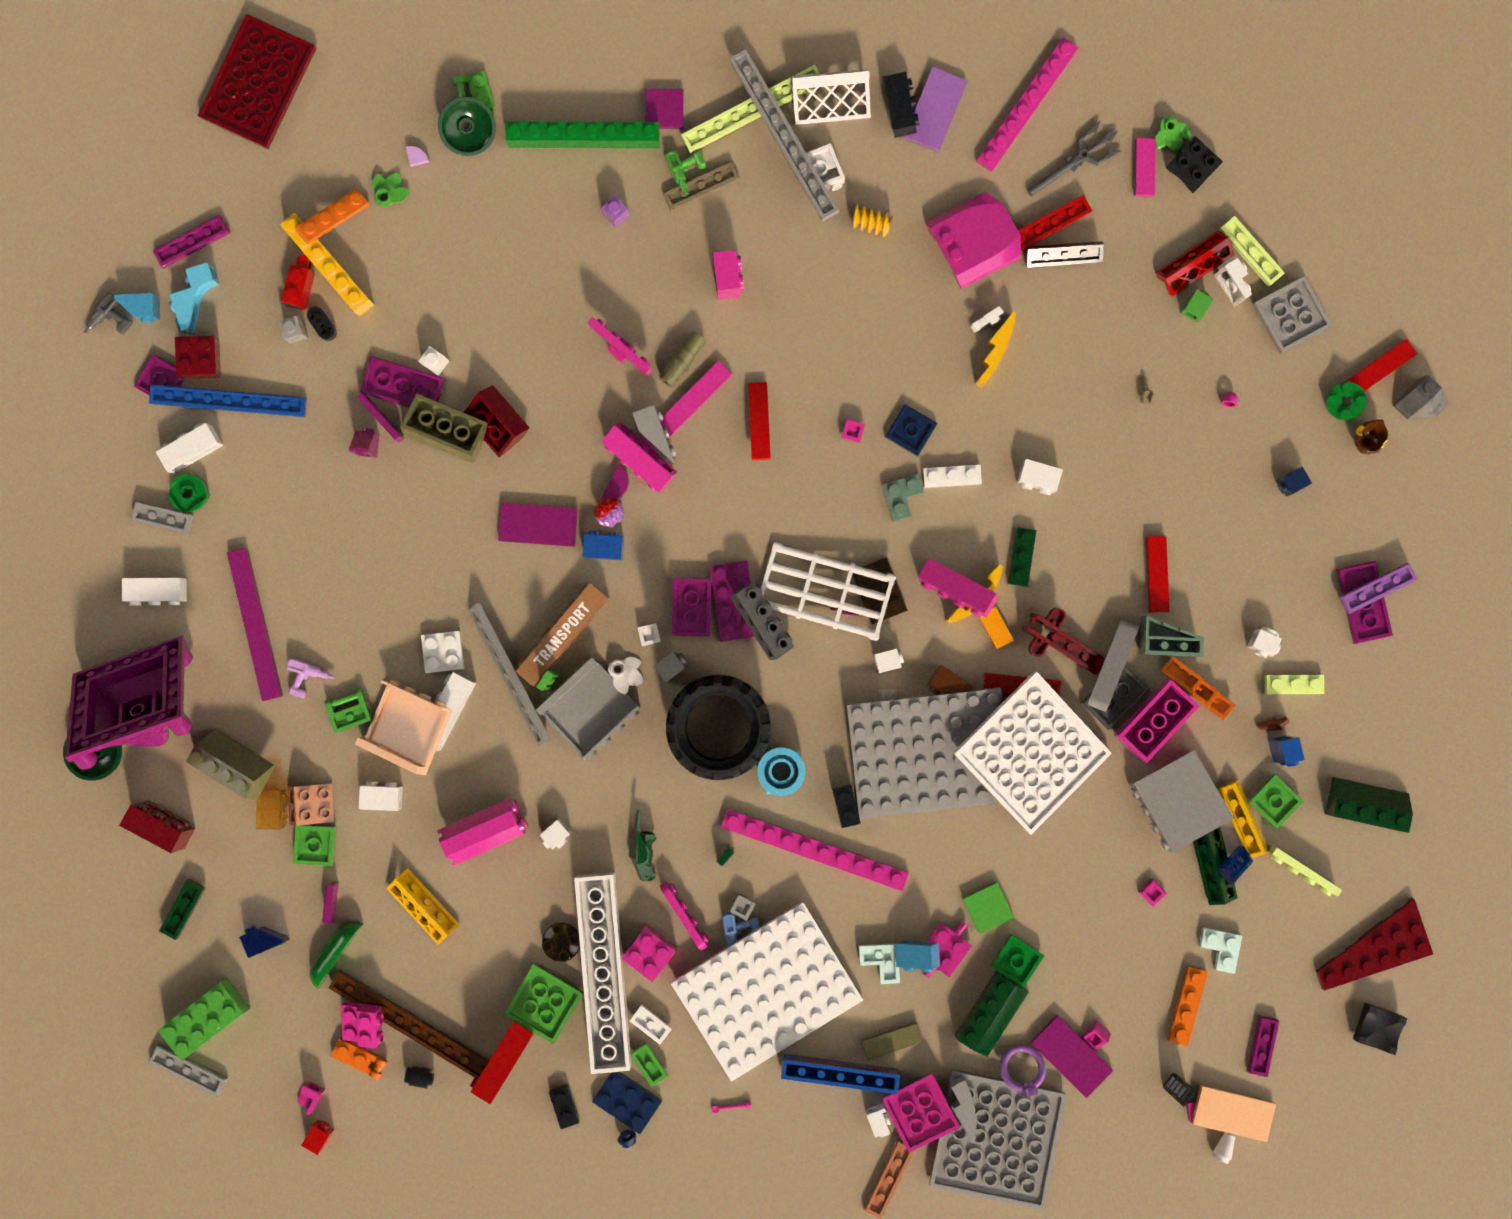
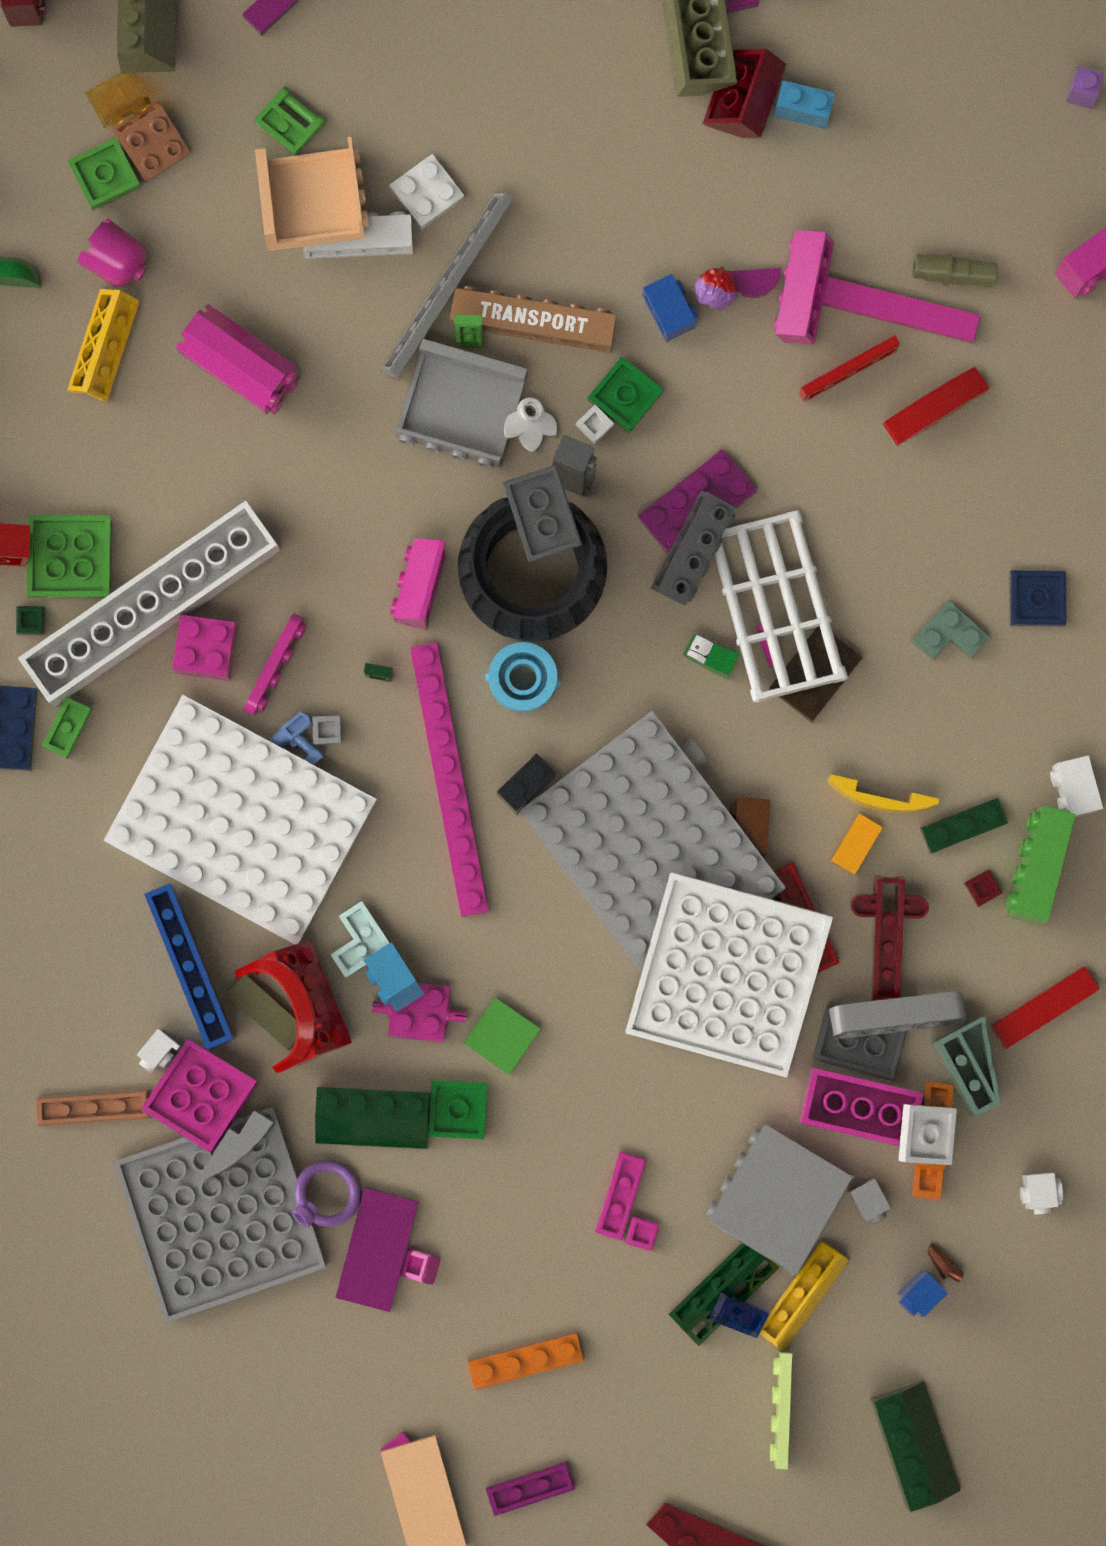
camera: 60 degrees right, 5 degrees down
(303, 670) = (308, 42): lavender piece -> none
(330, 902) = (45, 231): magenta tile -> none
(371, 869) = (114, 255): none -> dark pink cylinder
(380, 797) = (207, 217): white brick -> none
(525, 389) = (804, 104): none -> dark azure brick
(538, 524) = (649, 216): magenta tile -> none
(555, 835) = (284, 452): white brick -> none
(561, 942) = (155, 534): dark brown dish -> none
(569, 1048) = (30, 620): none -> dark green tile
(619, 348) = (923, 186): dark pink plate -> none
(641, 605) = (625, 394): none -> green plate
(641, 850) = (324, 568): dark green animal -> none
(650, 1024) = (117, 701): white plate -> none
(651, 429) = (849, 278): light grey slope -> none
(685, 800) = (419, 582): none -> dark pink slope
(691, 607) = (658, 456): magenta plate -> none
(694, 706) = (542, 513): none -> dark grey tile
(705, 464) = (849, 368): none -> red tile
(715, 1108) = (58, 843): dark pink hinge -> none
(832, 648) = (711, 656): none -> green leg
(853, 431) = (993, 527): dark pink plate -> none
(888, 660) = (736, 733): white brick -> none
(900, 1014) = (315, 1009): none -> red piece
(952, 476) = (1011, 681): white plate -> none
(958, 588) = (877, 763): dark pink brick -> none
(1065, 567) = (983, 888): none -> dark red tile
(1075, 527) = (1040, 865): none -> bright green brick
(1123, 892) = (620, 1196): none -> dark pink tile
(1179, 1089) = (415, 1405): black slope -> none
(1197, 692) = (927, 1134): none -> white plate
(1212, 747) = (869, 1201): none -> light grey brick
(1224, 1148) = (372, 1512): white cone -> none
(1227, 948) = (629, 1369): light aqua plate -> none
(1275, 801) = (848, 1322): bright green plate -> none
(1294, 684) = (1010, 1262): yellowish green plate -> none

